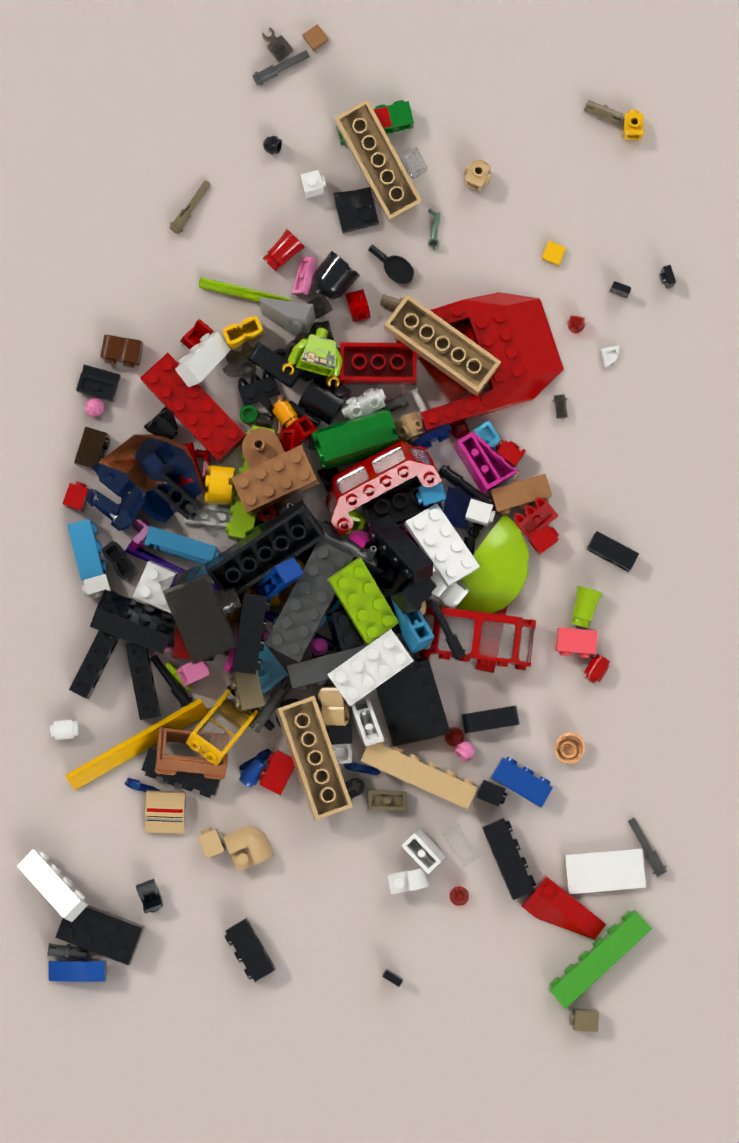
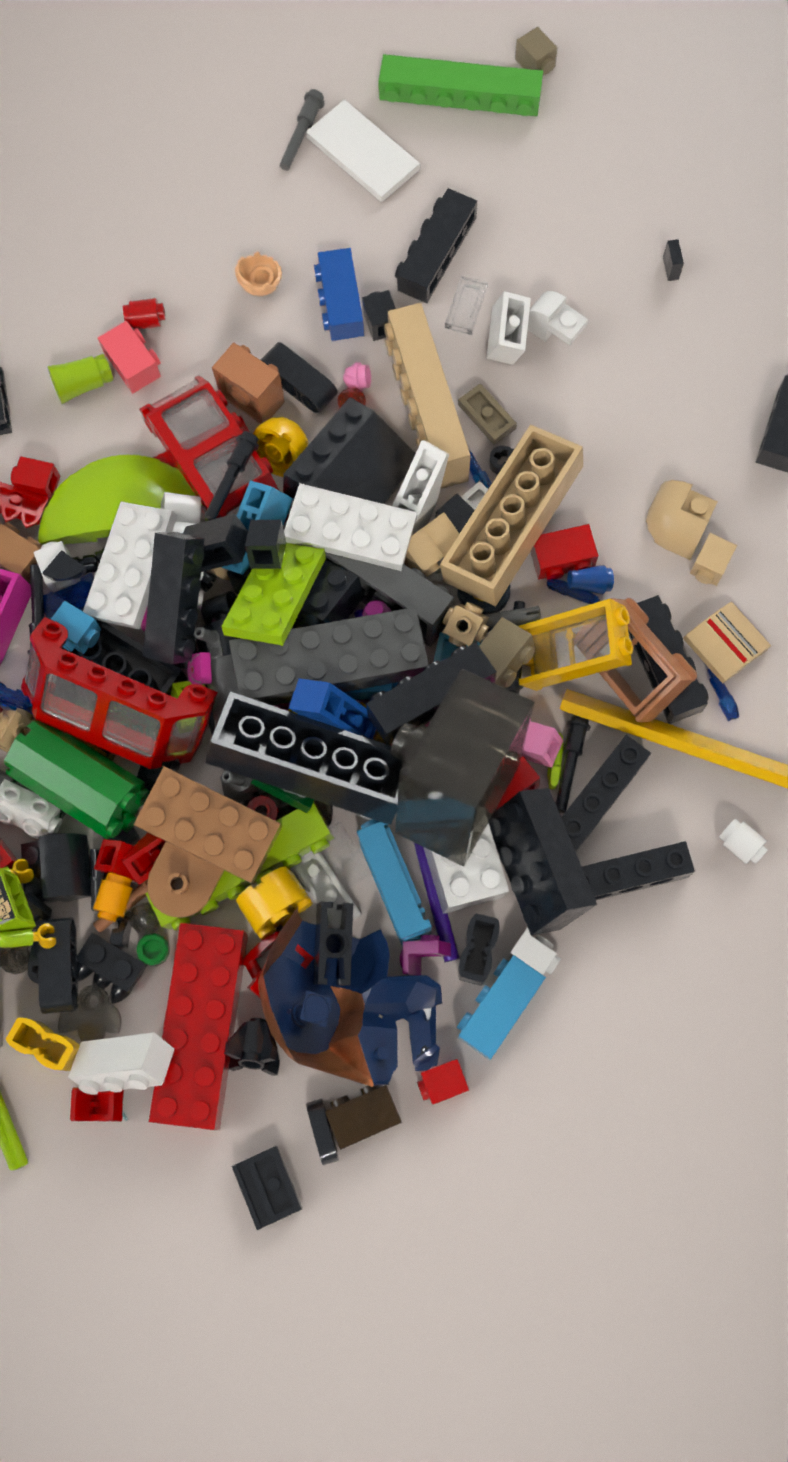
camera: 125 degrees left, 10 degrees down
(94, 407) = (304, 1164): bright pink plate -> none
(100, 425) = (322, 1132): none -> black beam
(121, 350) = (196, 1193): reddish brown brick -> none
(276, 685) = (476, 622): none -> tan brick
(389, 615) = (265, 544): none -> black brick
(456, 679) = (280, 443): none -> yellow cylinder
(459, 895) = (522, 265): clear red plate -> none
(469, 513) = (64, 568): none -> black tile
(503, 688) = (249, 383): none -> nougat container
(559, 908) = (442, 158): red wedge -> none

